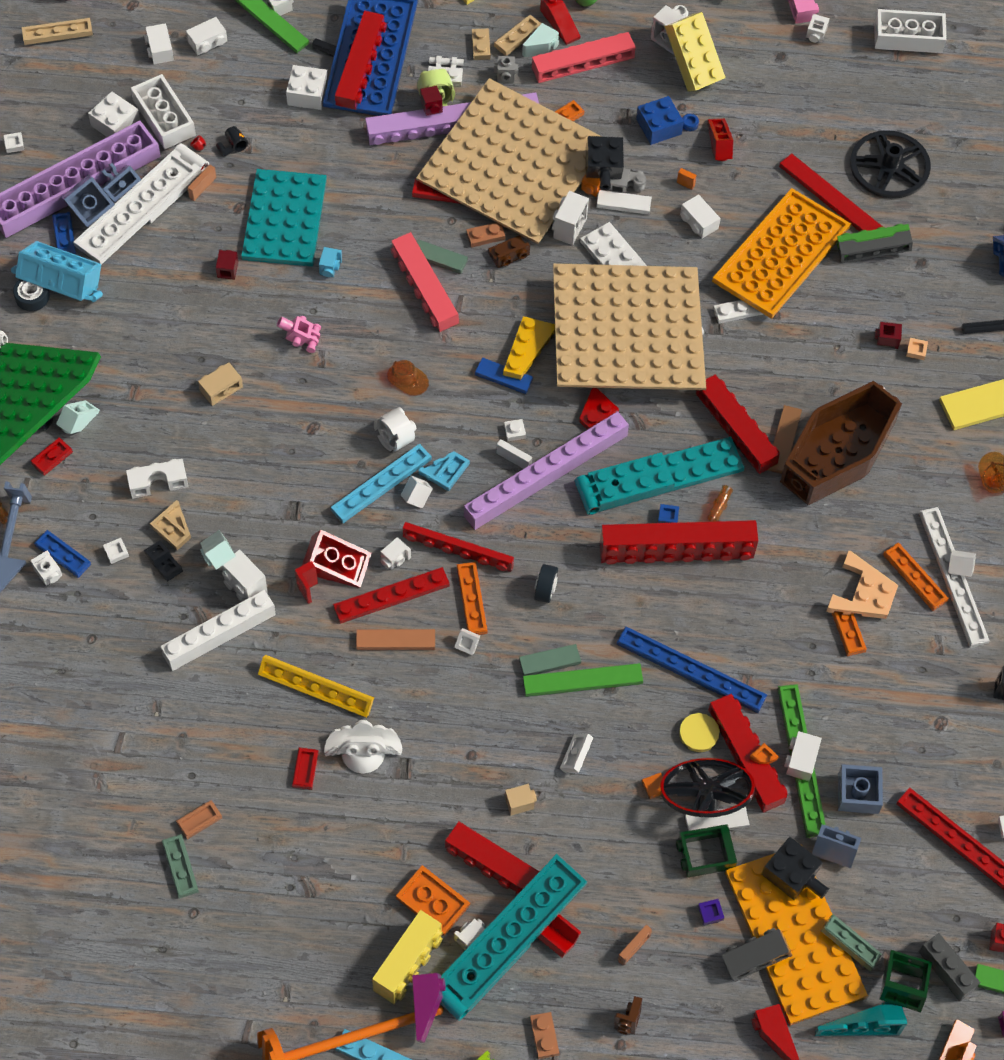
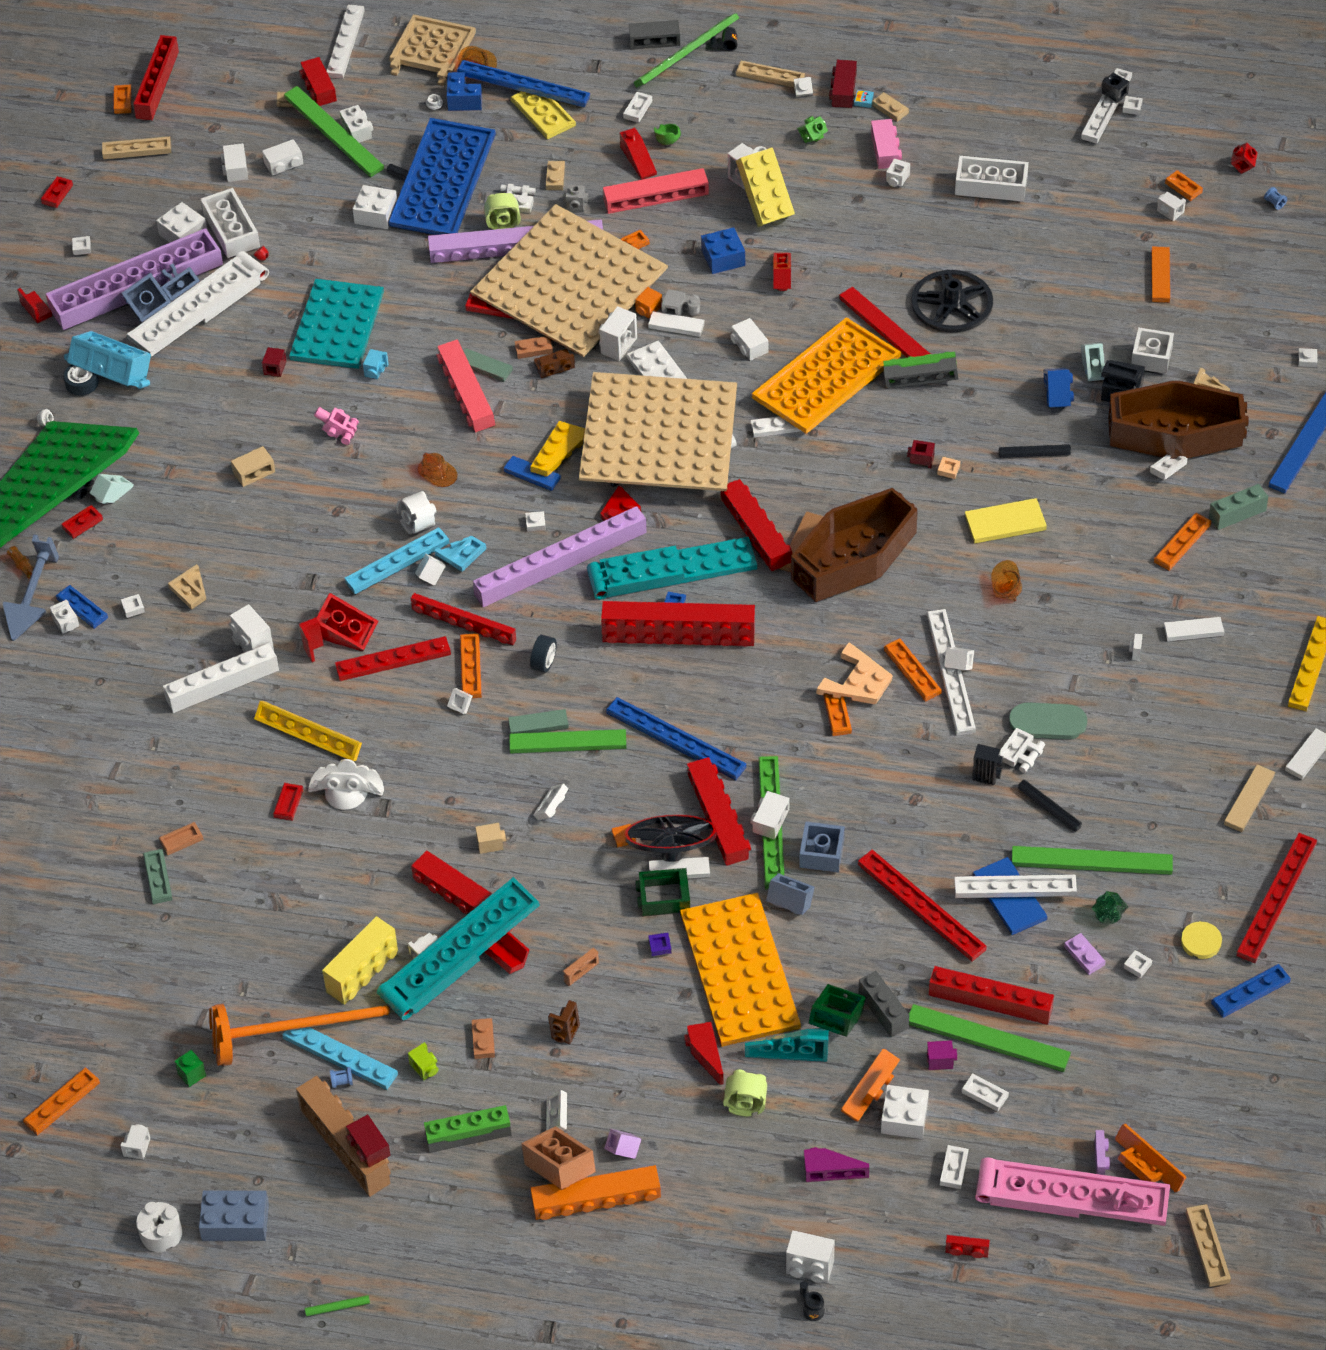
camera: 10 degrees right, 10 degrees down
(64, 232) = (120, 325): blue tile -> none
(142, 477) = (166, 544): white arch -> none
(163, 561) = (177, 618): black slope -> none
(201, 182) = (259, 288): nougat tile -> none
(216, 550) = (227, 605): light aqua brick -> none
(235, 139) = (299, 253): black piece -> none
(360, 59) = (429, 182): red brick -> none
(395, 554) = (401, 622): white brick -> none
(395, 639) = (391, 696): nougat tile -> none
(427, 998) = (372, 997): magenta slope -> none
(431, 100) = (494, 221): dark red brick -> none
(434, 898) = (397, 914): orange plate -> none
(513, 454) = (528, 540): white tile -> none
(517, 35) = (593, 168): tan plate -> none
(541, 41) = (614, 173): light aqua slope -> none
(604, 159) = (658, 280): black brick -> none
(686, 178) = (741, 304): orange tile -> none
(690, 122) = (755, 254): blue tile -> none
(699, 732) = (674, 792): light yellow tile -> none
(720, 503) = (727, 594): clear orange pin -> none
(756, 954) = (696, 979): dark grey brick -> none
(764, 755) = (731, 810): orange tile -> none
(794, 869) = (743, 909): black brick -> none
(851, 942) = (791, 977): sand green tile -> none

